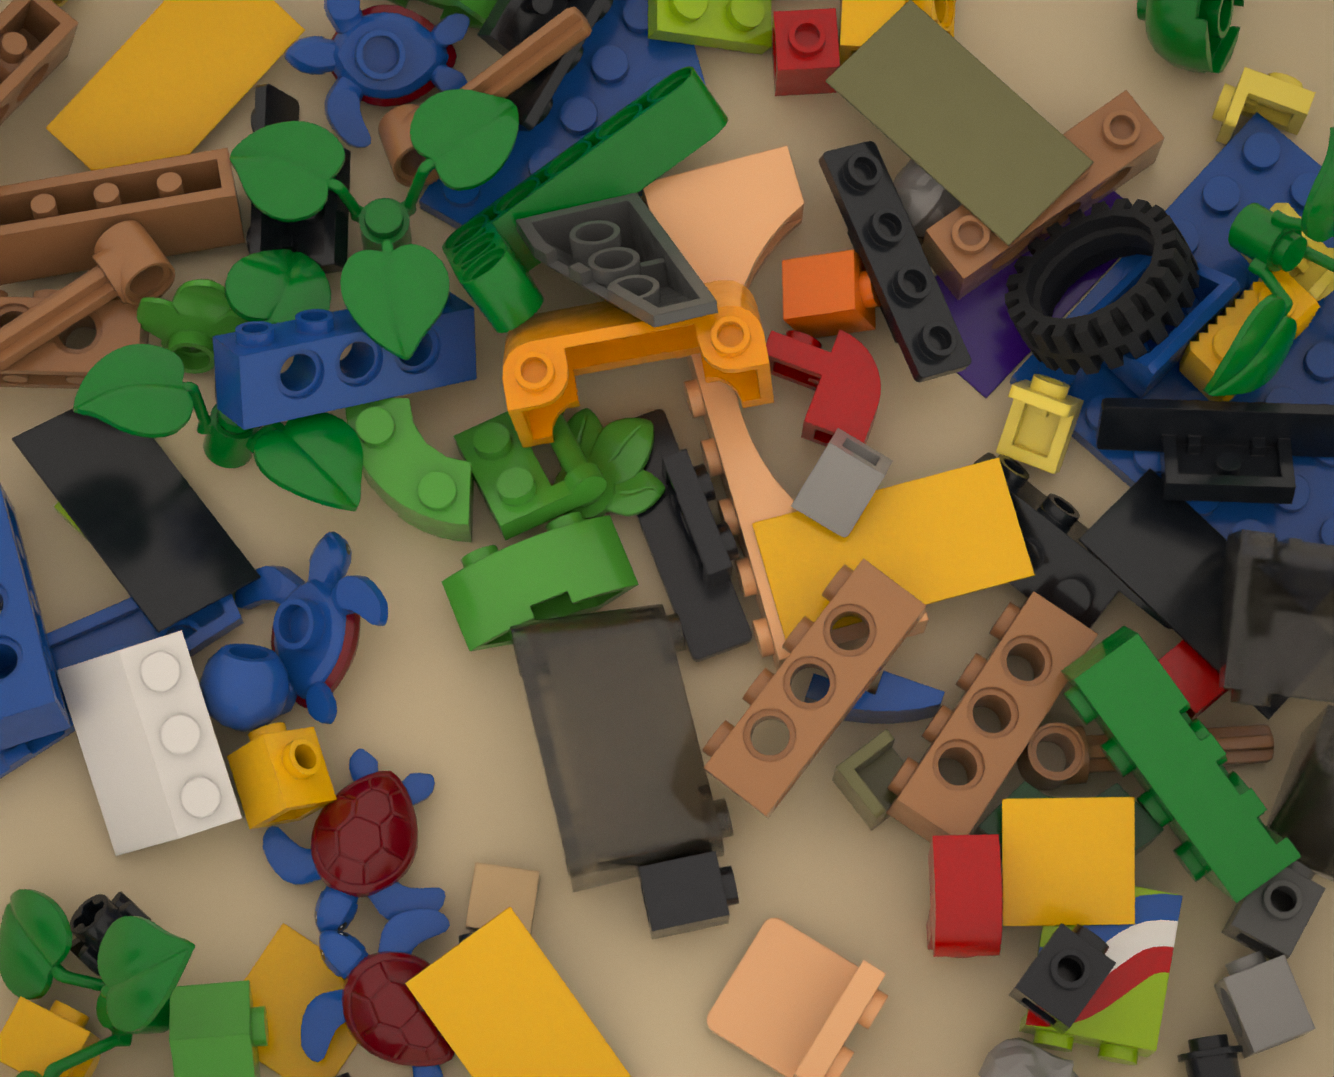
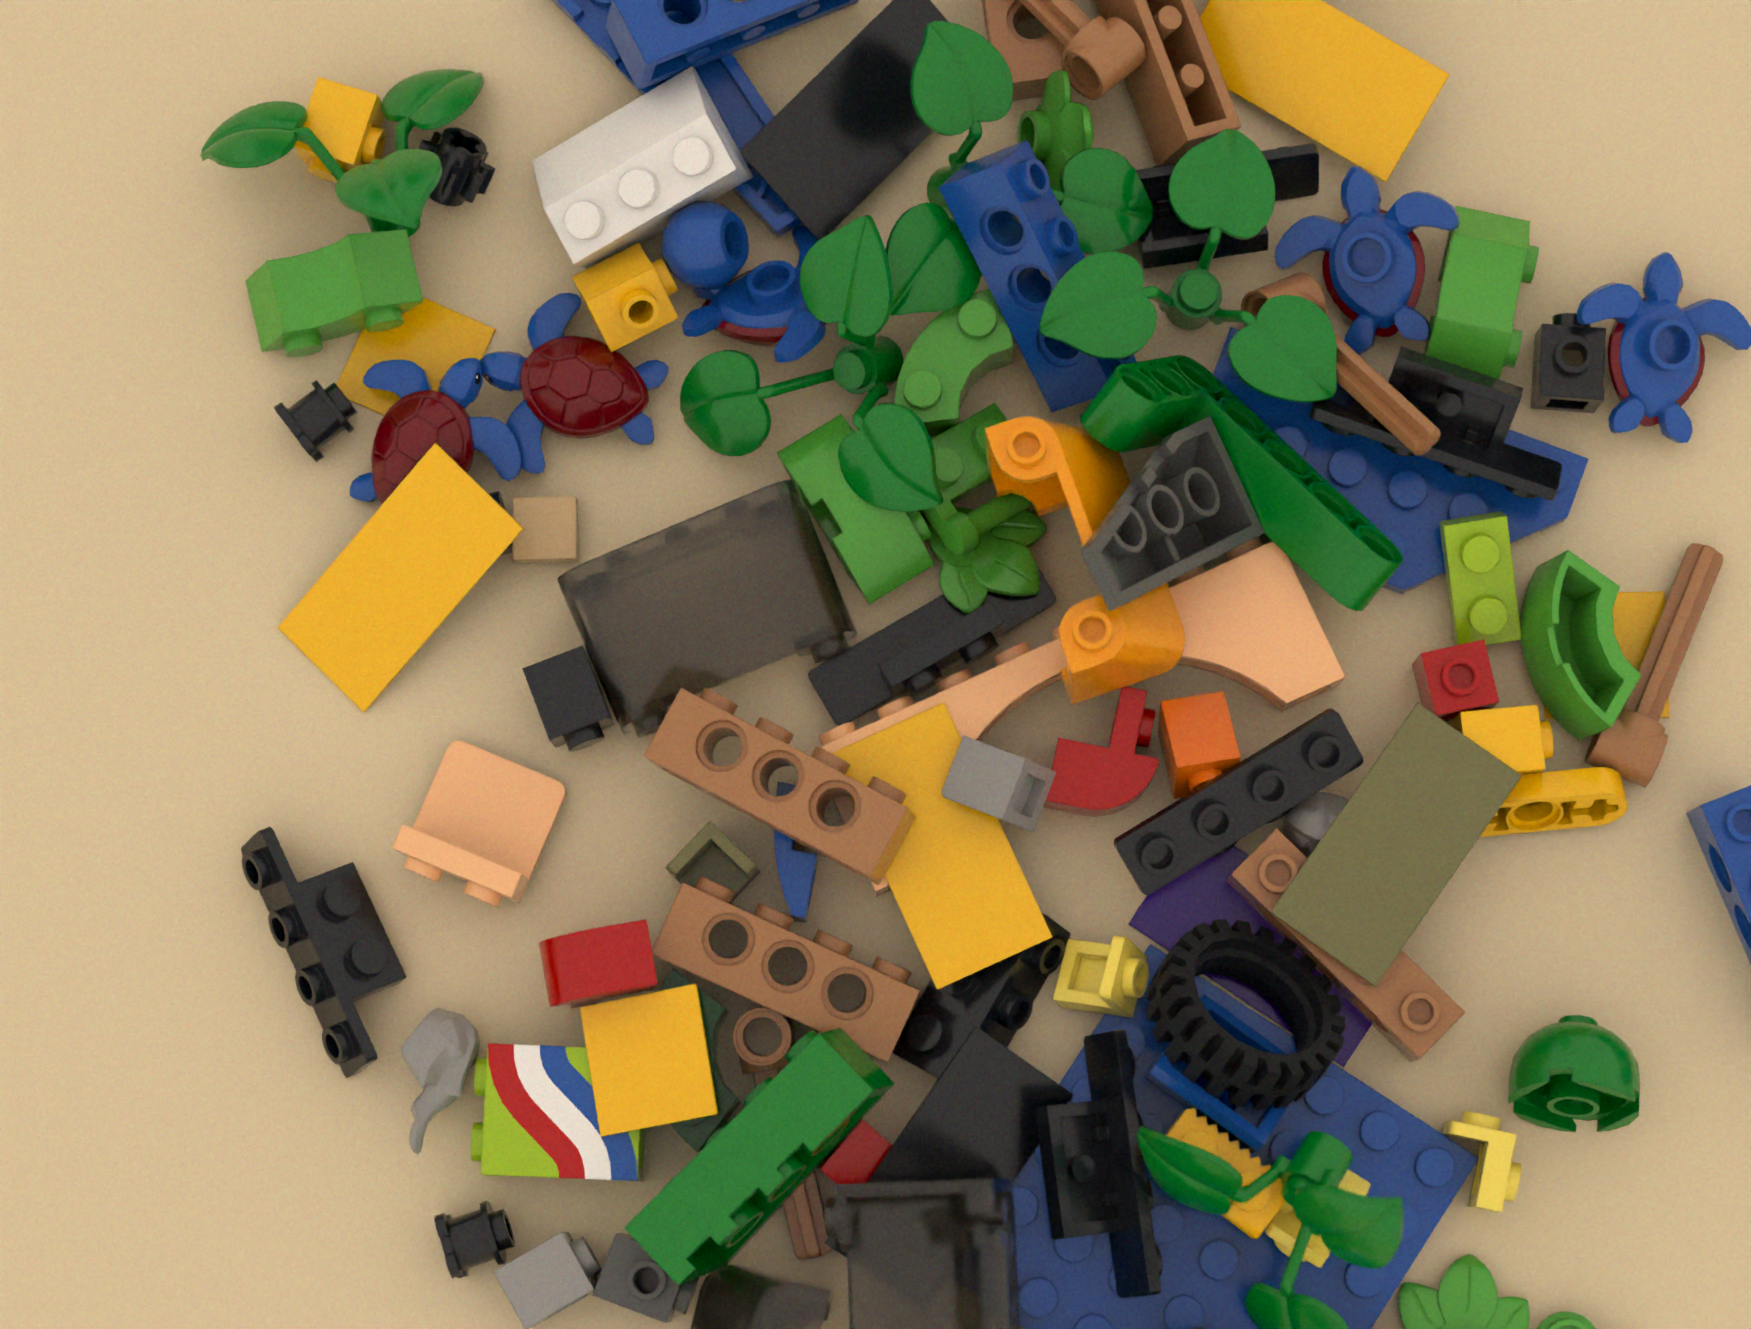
camera: 90 degrees right, 5 degrees up
(325, 528) = (891, 454): none -> green plant
(1064, 976) = (532, 1070): black brick -> none

